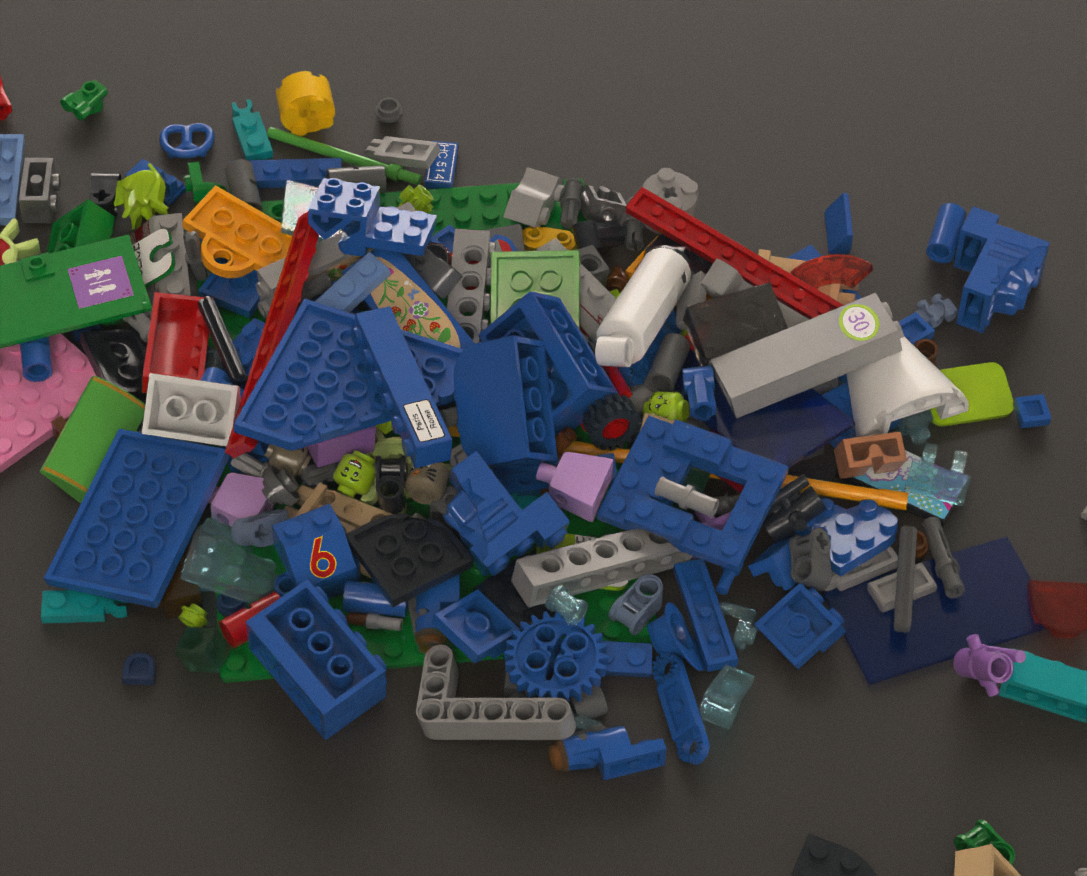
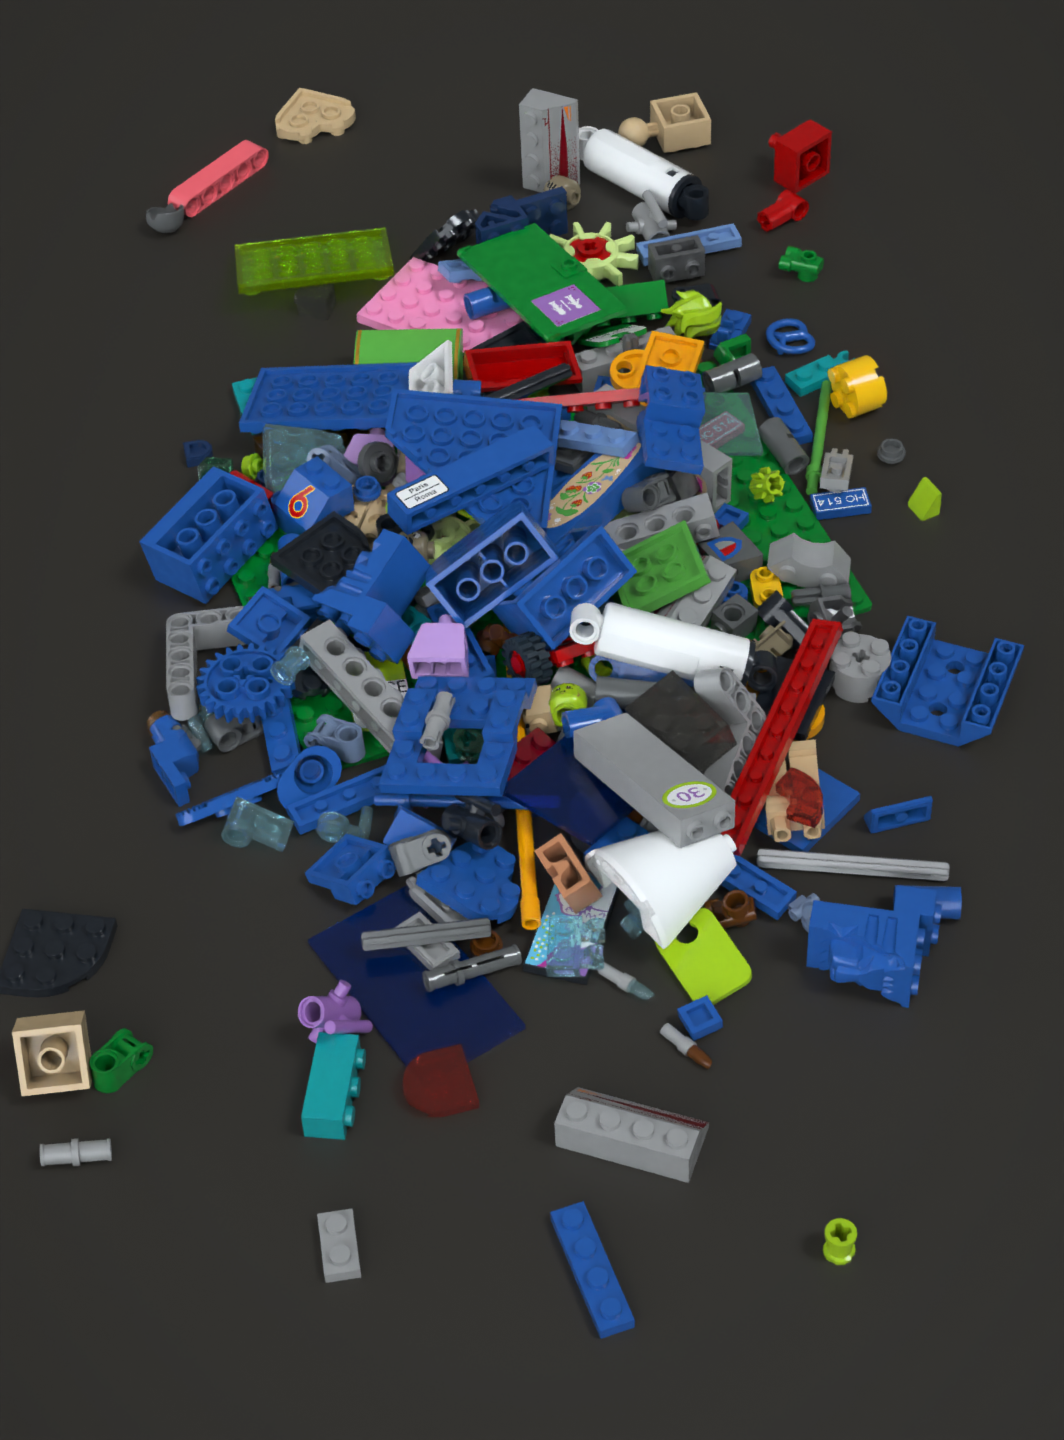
camera: 80 degrees right, 5 degrees down
(310, 498) = (367, 489): none -> blue plate
(466, 104) = (925, 500): none -> lime slope
(621, 254) = (774, 641): none -> dark tan hinge
(718, 140) = (922, 684): none -> blue slope
(894, 253) = (853, 864): none -> light grey axle
(980, 452) = (626, 982): none -> piece
(1053, 430) = (686, 1045): none -> light grey piece

